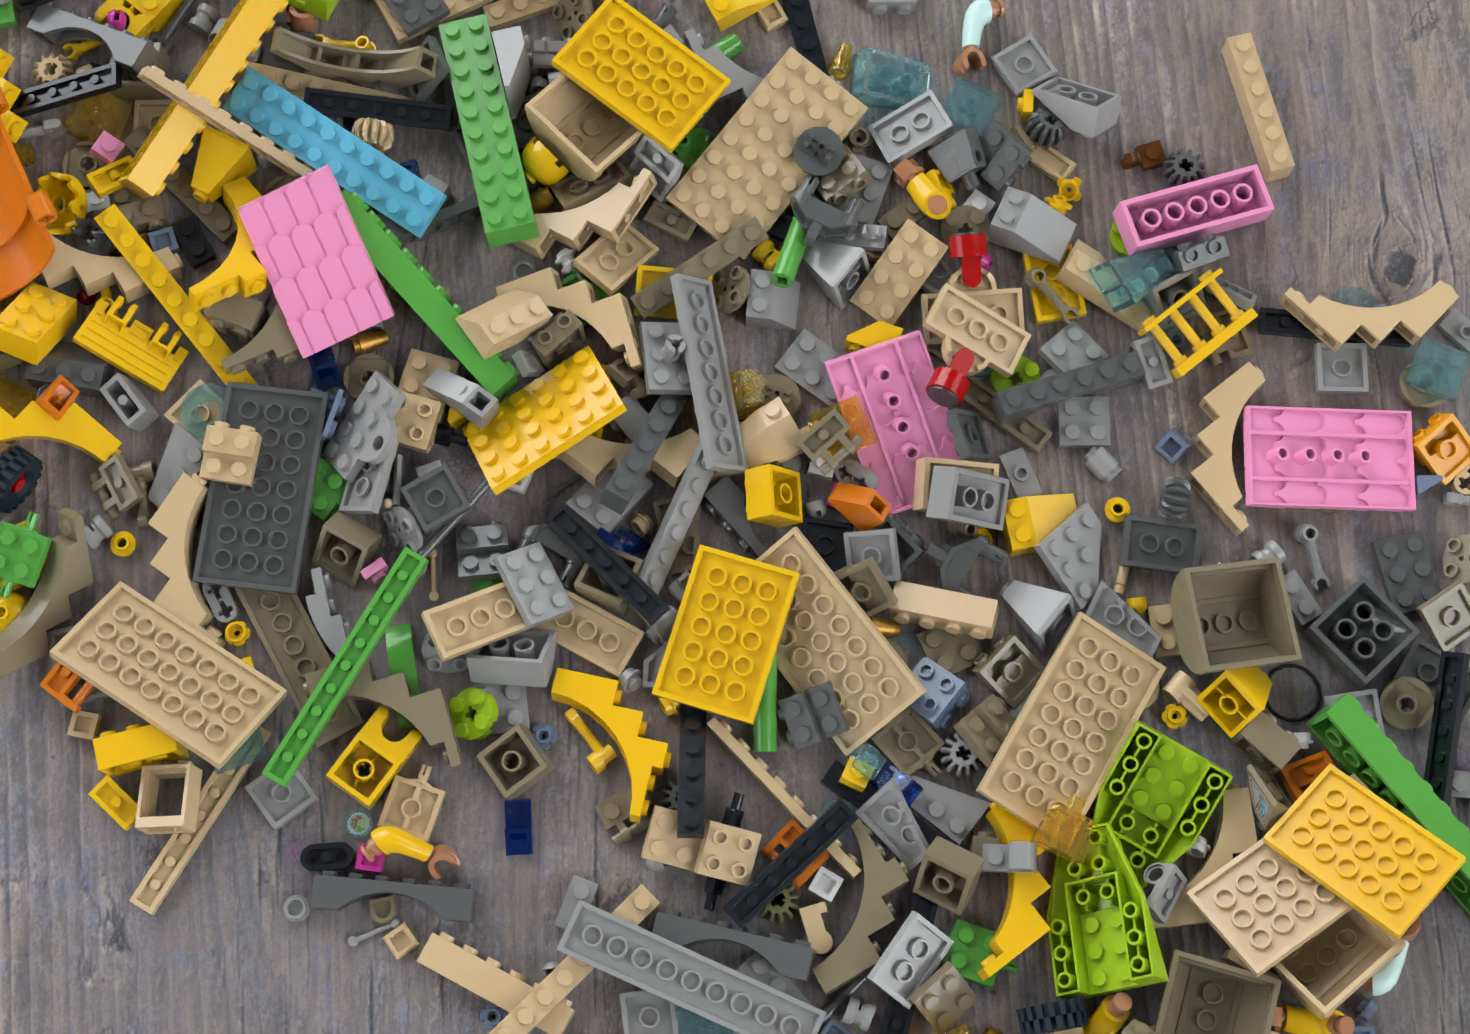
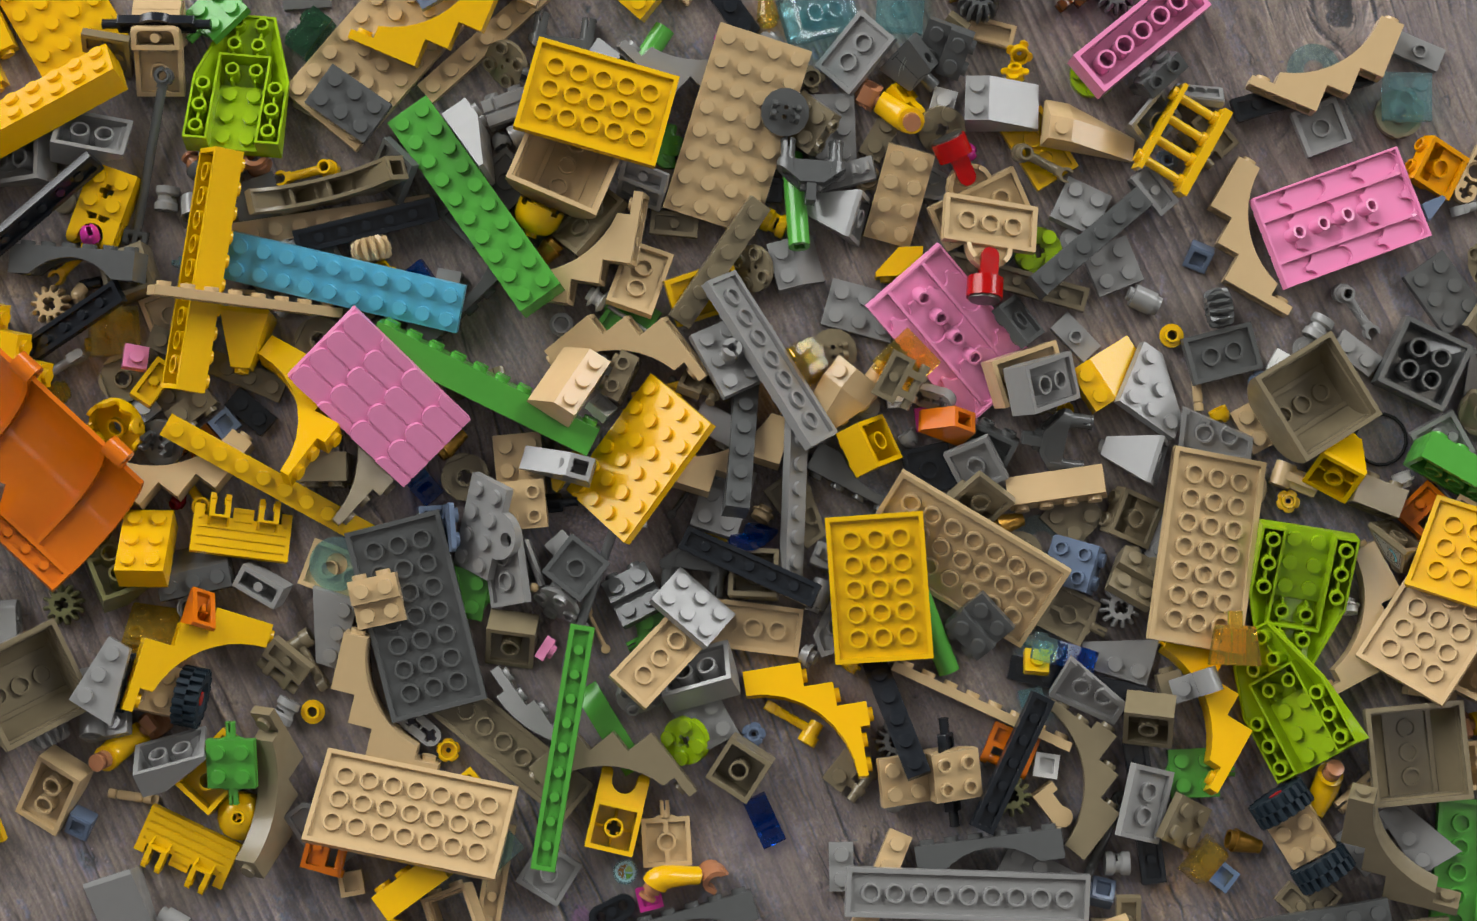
camera: 20 degrees left, 10 degrees up
(1131, 277) = (1110, 121): clear light blue wedge -> none
(1166, 887) = (1337, 654): light grey plate -> none

